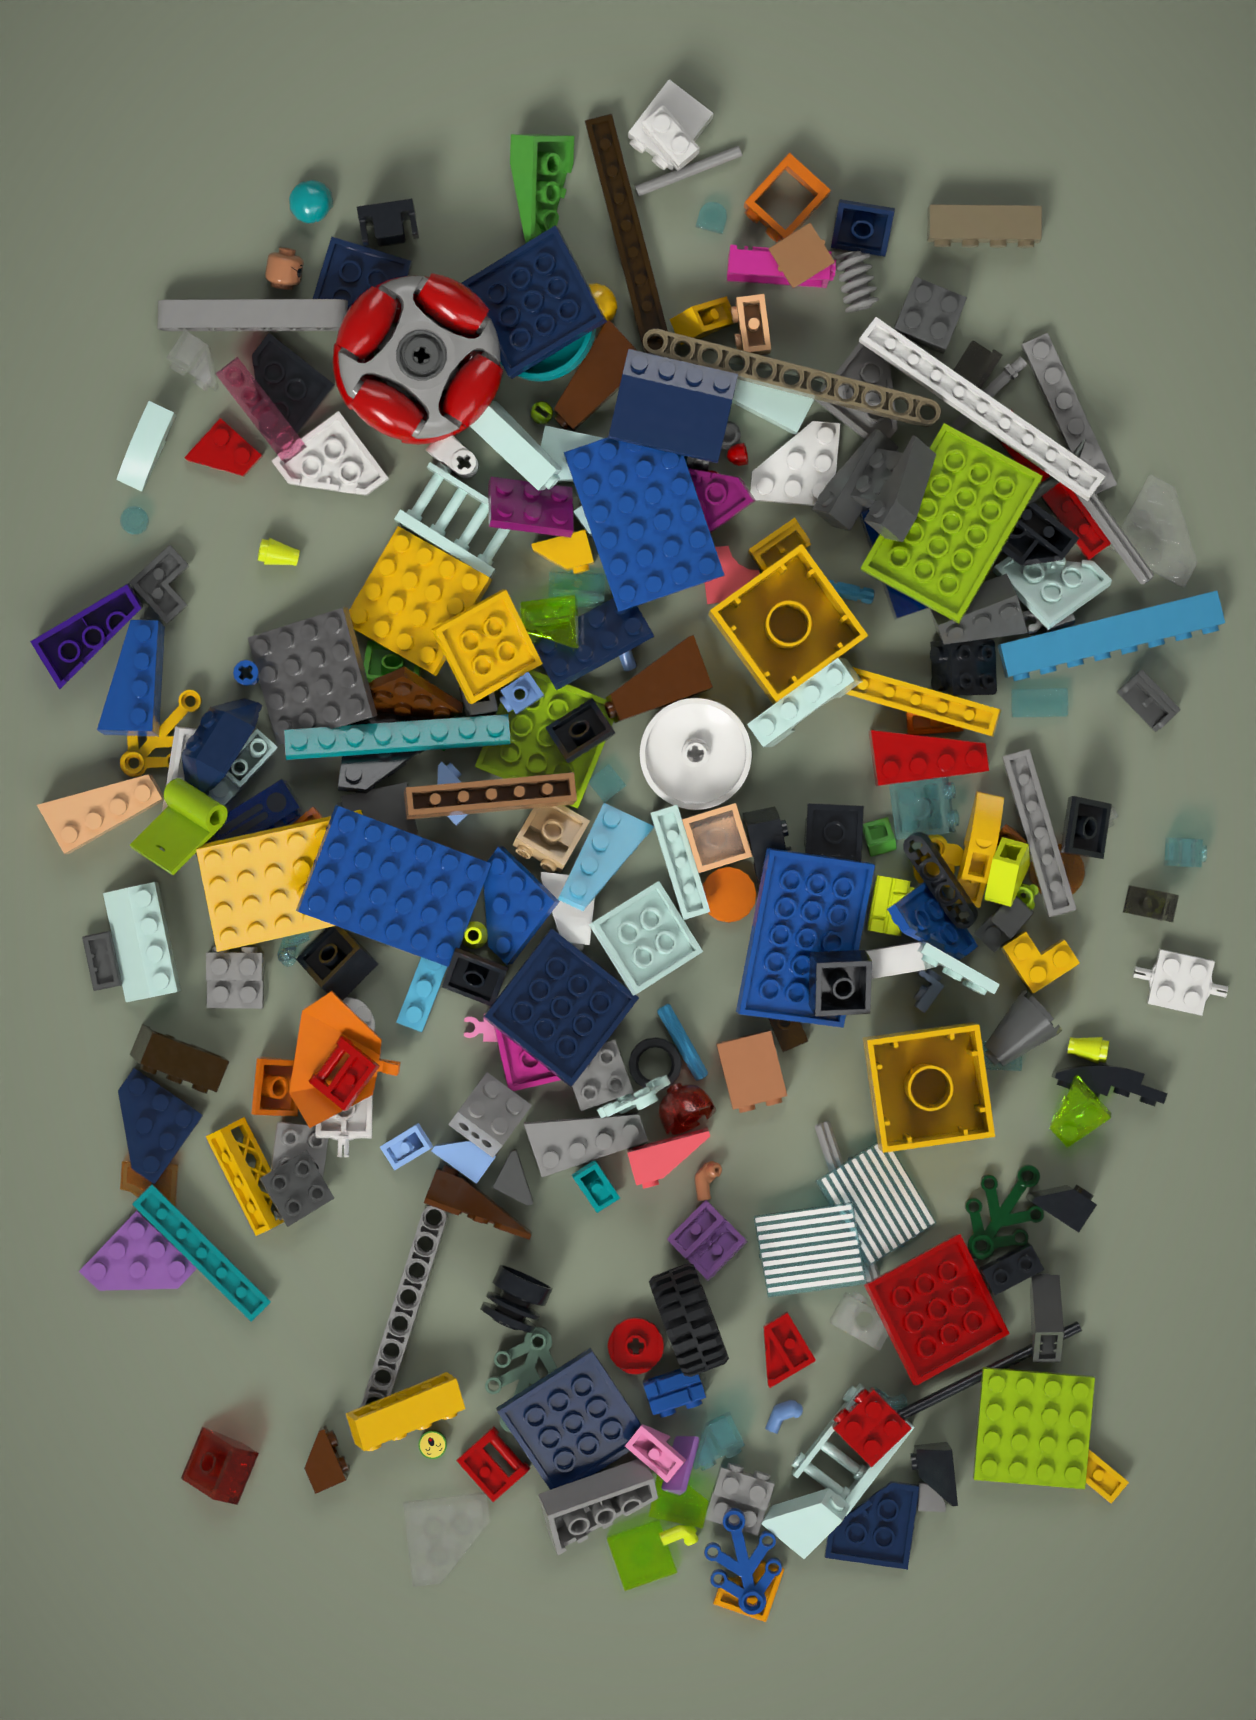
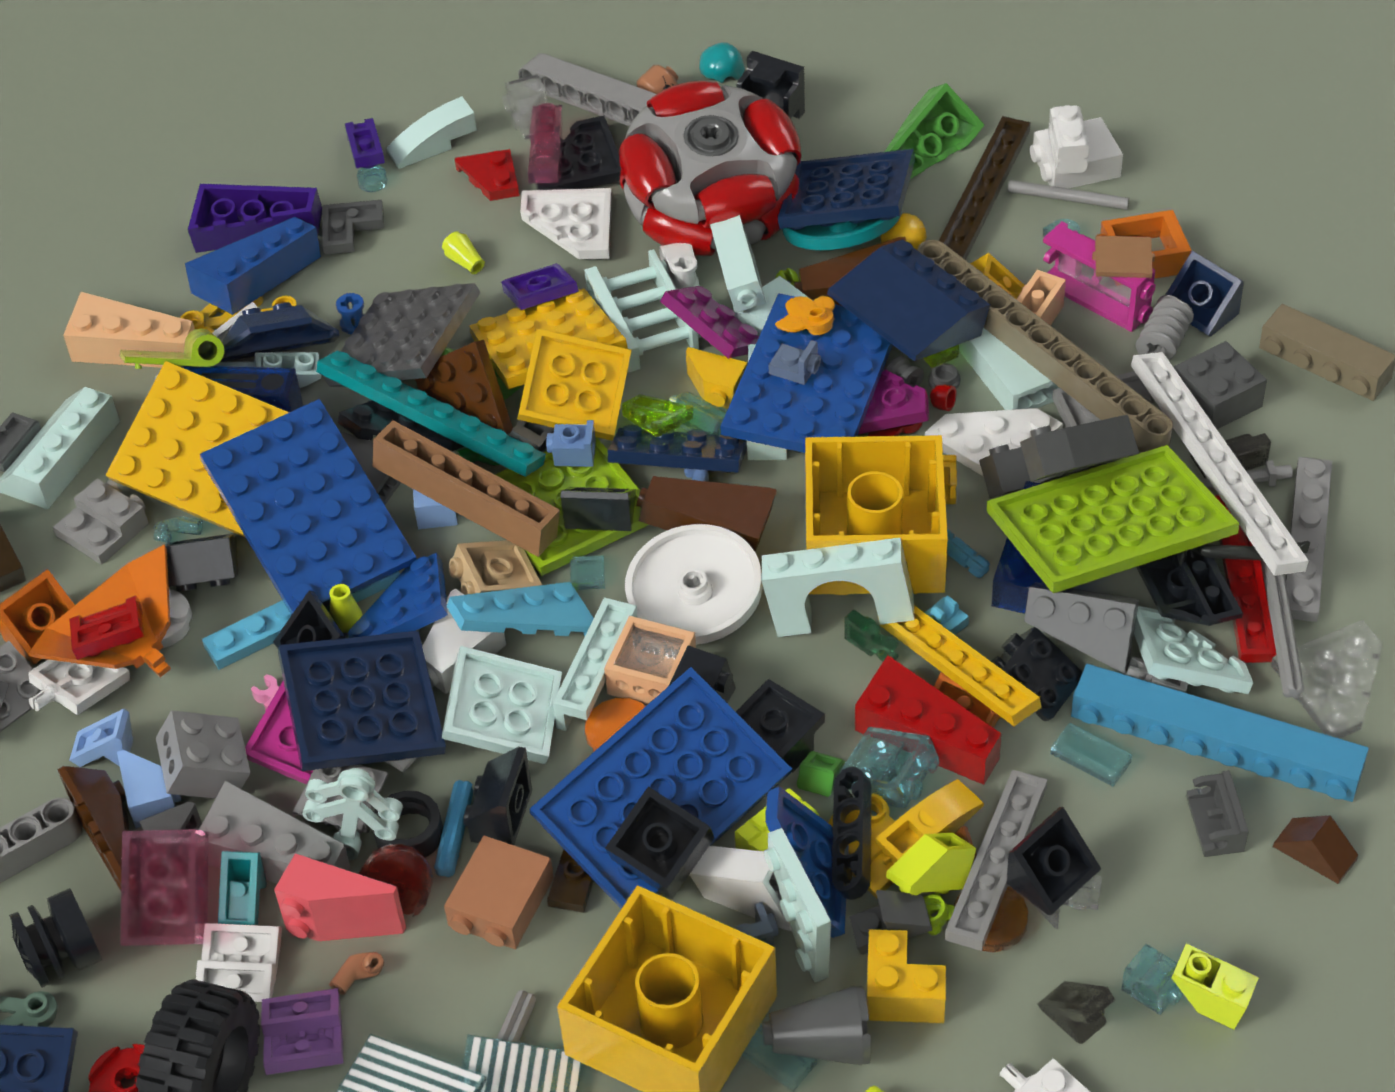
camera: 40 degrees right, 40 degrees down
(102, 494) = (364, 144): none -> dark purple plate
(366, 550) = (539, 286): none -> dark purple tile
(557, 1223) = (164, 887): none -> clear pink brick
(605, 469) = (808, 314): none -> light orange plate
(630, 1226) = (241, 958): none -> white slope
(634, 523) = (795, 363): none -> sand blue bracket
(701, 1009) = (500, 798): none -> black slope
(835, 710) = (866, 636): none -> clear green plate
(874, 657) = (948, 615): none -> medium azure tile
(1220, 681) = (1318, 845): none -> reddish brown slope
(1226, 837) = (1214, 986): none -> neon yellow slope

